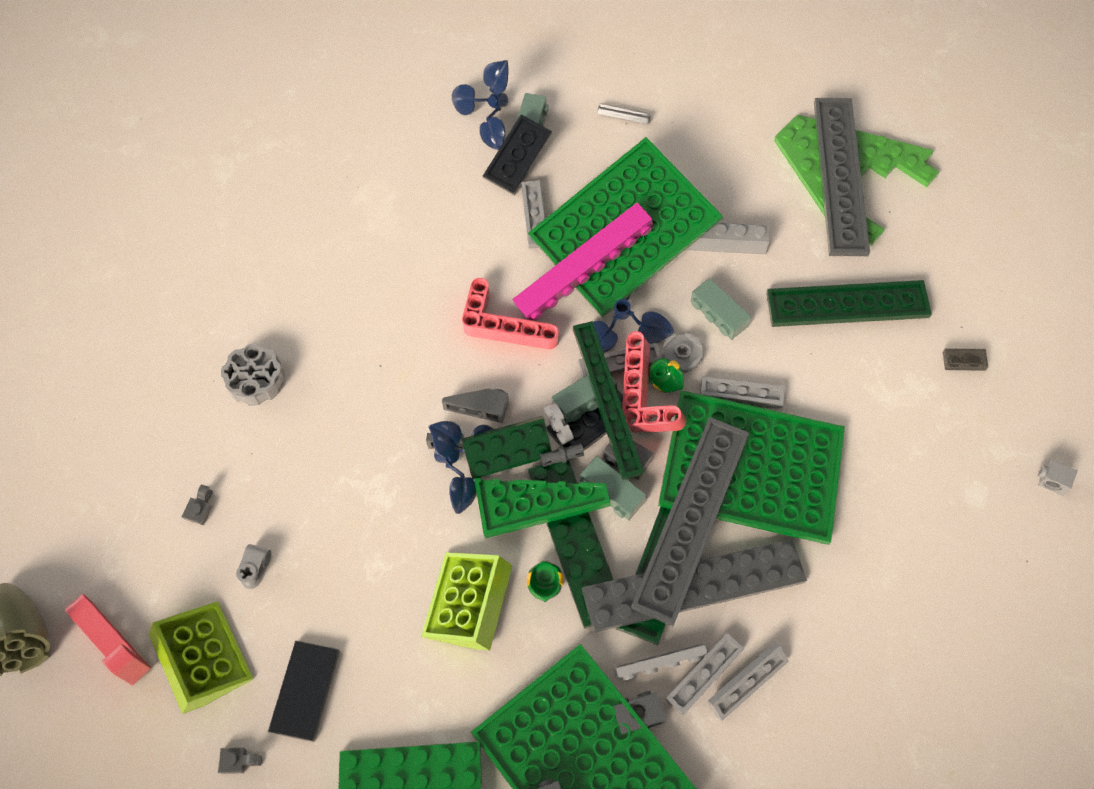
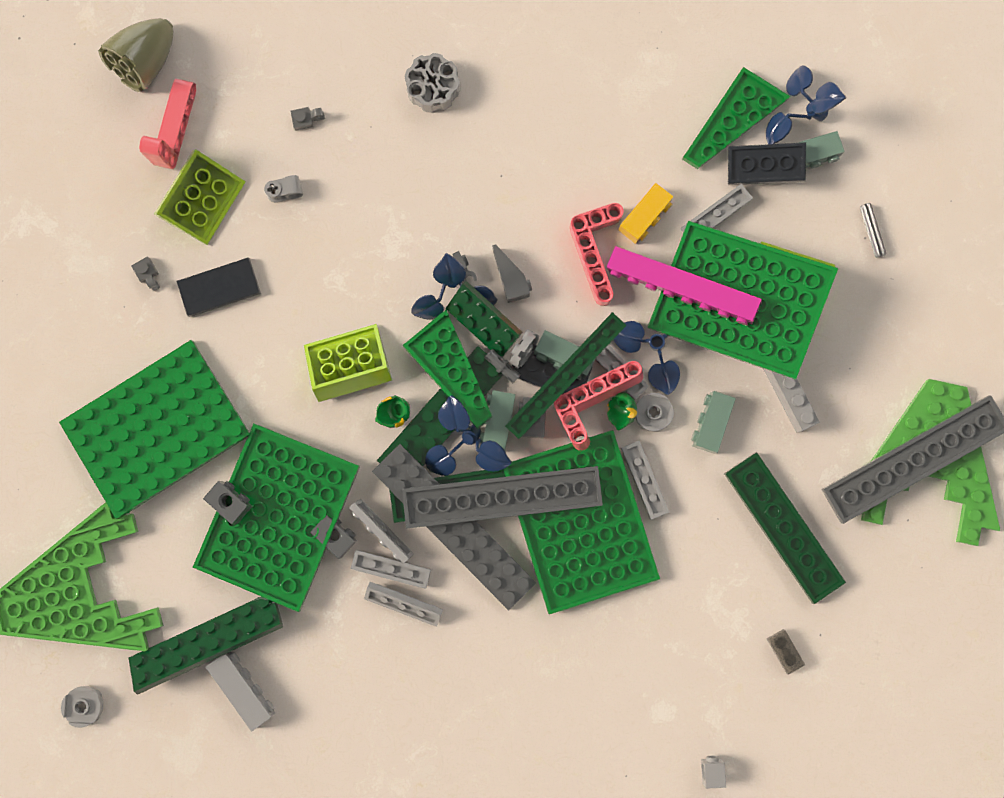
camera: 60 degrees right, 20 degrees up
(457, 155) = (739, 110): none -> green wing
(498, 265) = (646, 213): none -> yellow brick
(591, 510) = (455, 416): none -> dark blue plant

